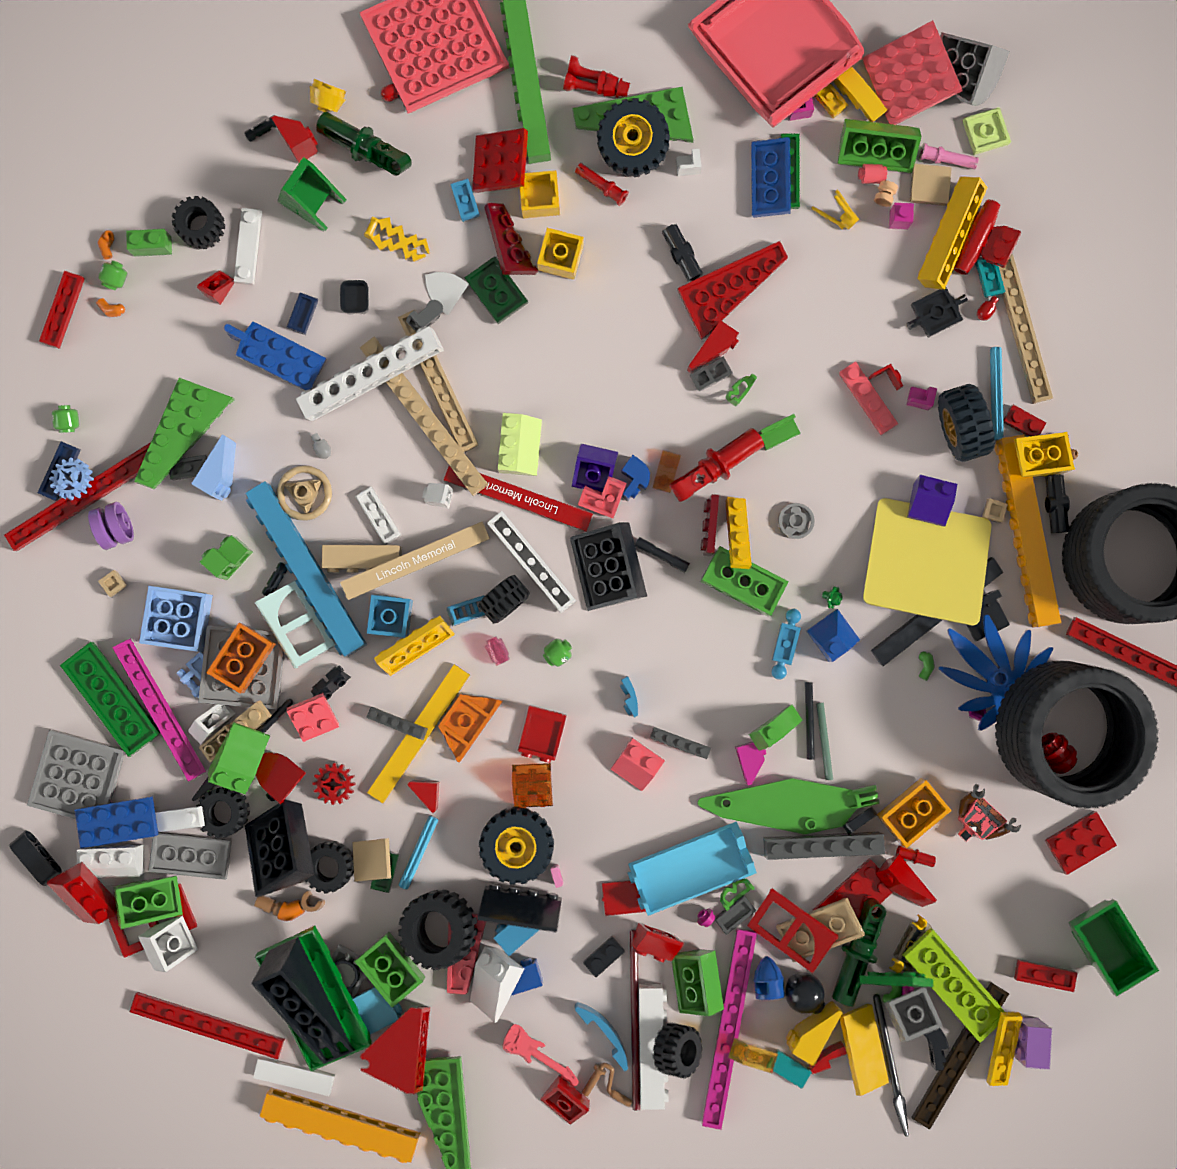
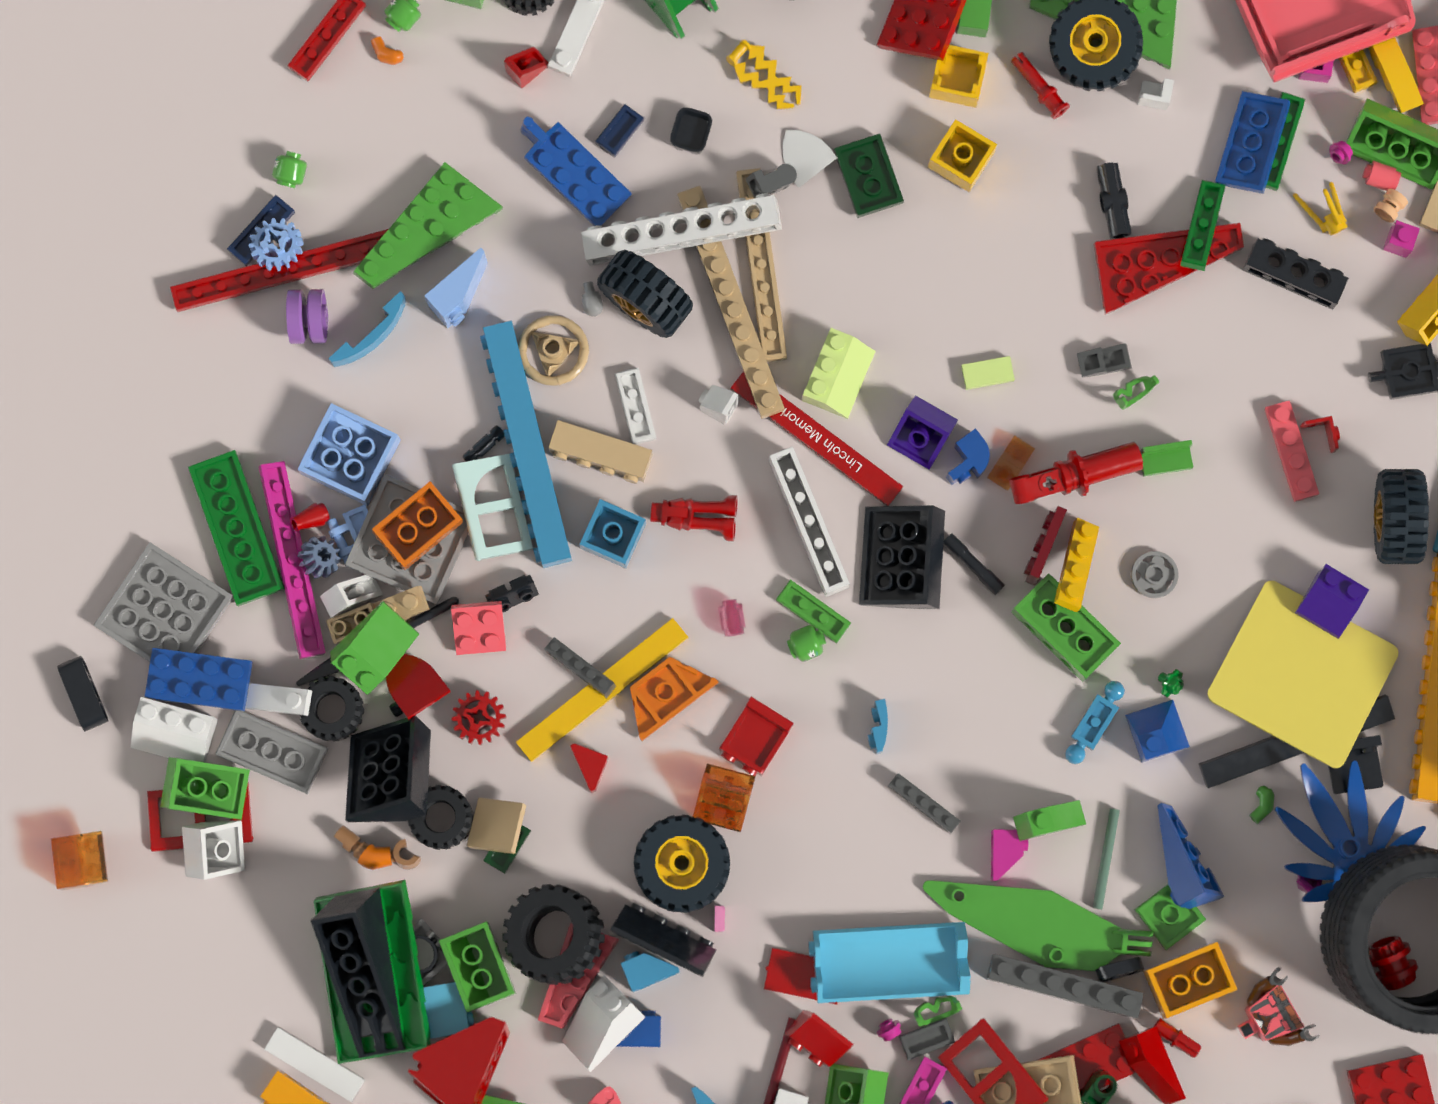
camera: 15 degrees right, 5 degrees down
(69, 985) = (79, 860): none -> clear orange slope
(84, 894) = (131, 755): red slope -> none
(112, 583) = (283, 387): tan plate -> none
(164, 673) = (311, 517): none -> red cone
(169, 524) = (347, 354): none -> dark azure slope
(174, 708) = (319, 557): none -> sand blue gear
(187, 467) = (421, 275): dark grey plate -> none
(207, 1025) = (227, 967): red tile -> none
(226, 559) = (434, 400): bright green brick -> none
(356, 430) = (645, 293): none -> black wheel
(414, 560) = (666, 474): tan tile -> none
(414, 646) = (632, 578): yellow plate -> none
(418, 852) = (555, 836): medium azure axle -> none
(436, 585) = (680, 515): none -> red piece
(450, 610) = (689, 550): dark azure slope -> none
(465, 200) = (864, 53): dark azure plate -> none
(503, 599) = (761, 555): black tyre -> none
(507, 242) = (901, 132): dark red wing -> none
(555, 626) = (813, 611): none -> bright green tile
(603, 956) = (746, 1039): black plate -> none
(606, 501) = (924, 476): coral plate -> none
(629, 409) = (987, 373): none -> yellowish green tile
(637, 764) = (862, 812): coral slope -> none
(716, 345) = (1120, 327): red slope -> none
(753, 251) = (1203, 225): none -> green tile
(809, 720) = (1095, 827): black bar -> none
(837, 165) = (1340, 152): none -> dark pink plate
(841, 272) = (1258, 265): none -> black brick
(883, 767) = (1167, 919): none -> bright green tile
(889, 738) = (1186, 876): none -> blue wedge
(921, 398) = (1358, 471): dark pink panel -> none
(994, 510) = (1407, 638): tan plate -> none

